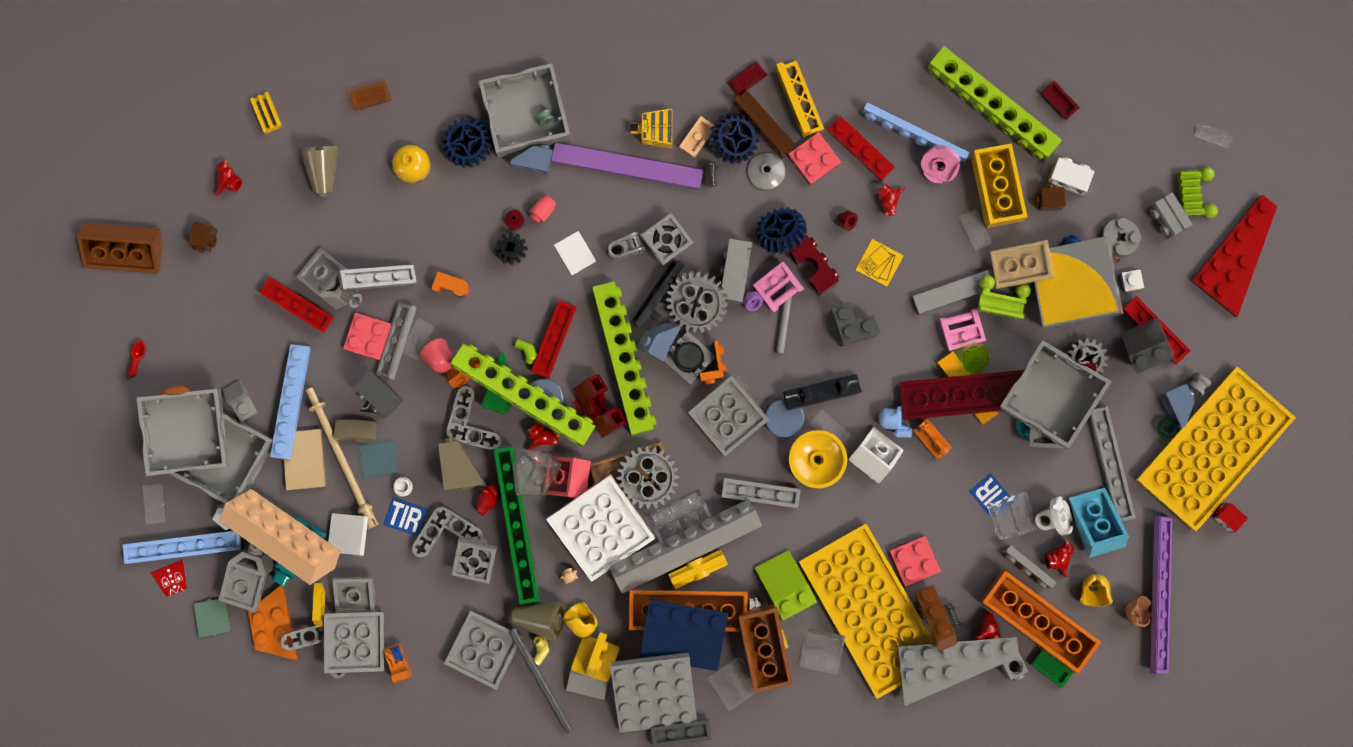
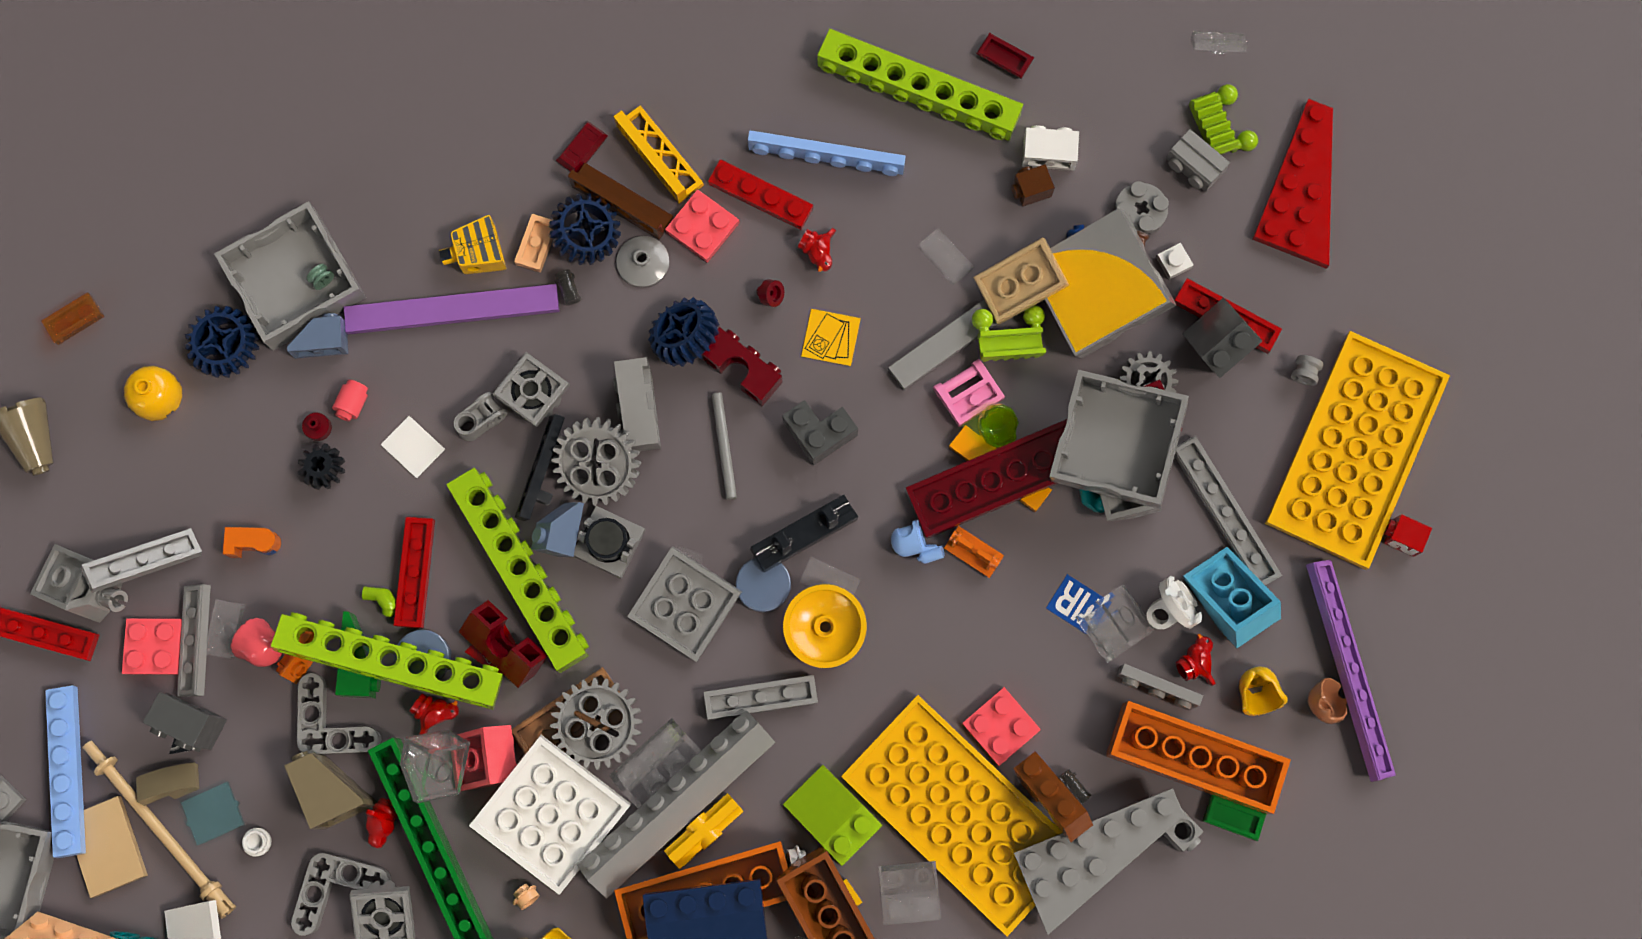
camera: 15 degrees left, 5 degrees down
(405, 516) = (272, 883): blue sticker -> none
(711, 377) = (646, 558): orange bracket -> none
(752, 301) = (673, 439): medium lavender tile -> none
(775, 281) = (696, 402): bright pink plate -> none
(876, 455) = (903, 596): white slope -> none
(943, 154) = (877, 168): bright pink plate -> none
(988, 628) = (1130, 788): red animal -> none
(998, 185) = (958, 188): yellow brick -> none
(1172, 428) = (1287, 434): clear green plate -> none
(1179, 404) = (1290, 404): sand blue slope -> none

